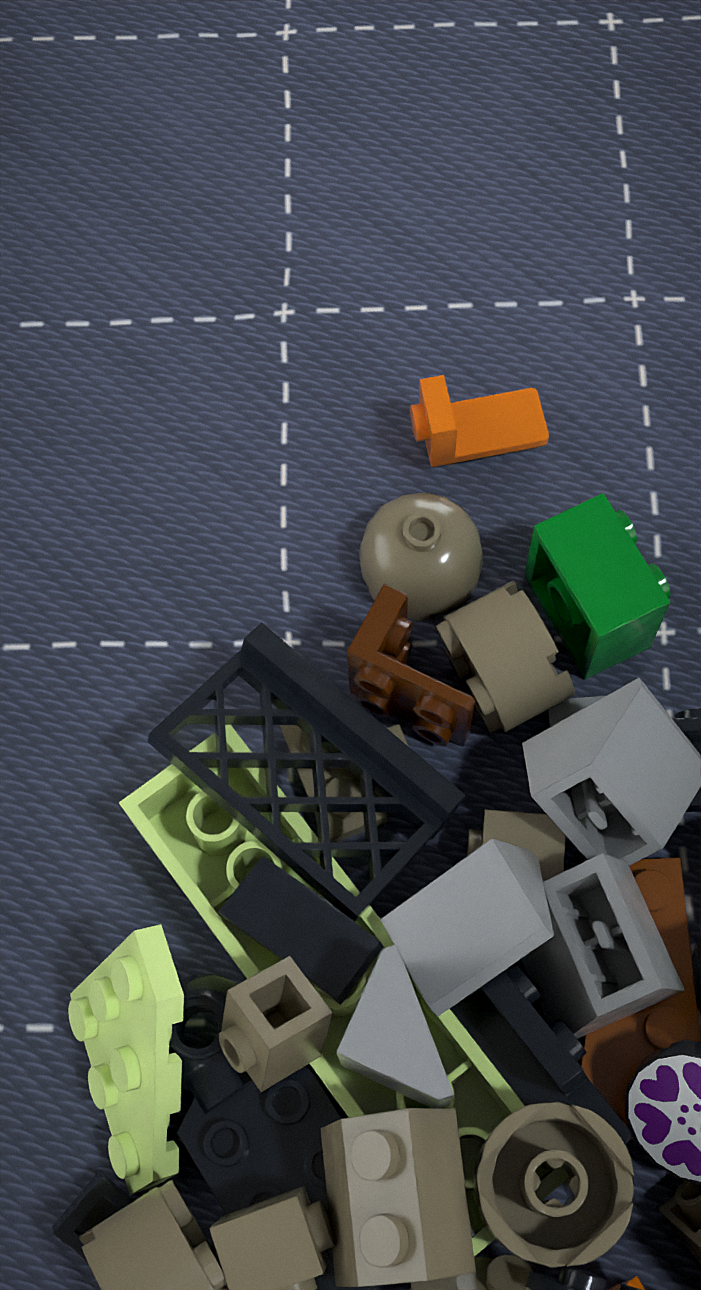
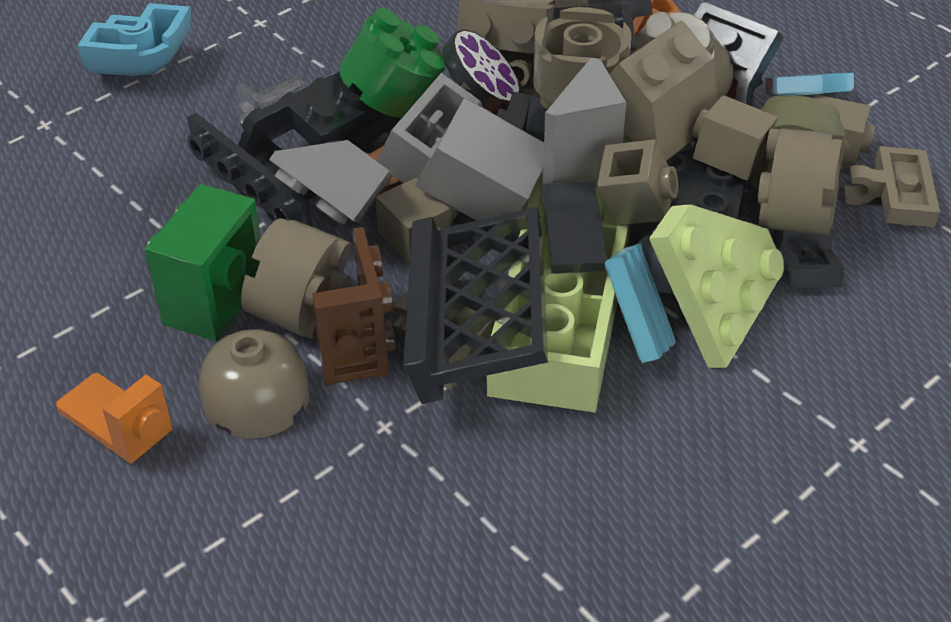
camera: 135 degrees left, 25 degrees down
(197, 960) = (640, 303): none -> medium azure tile

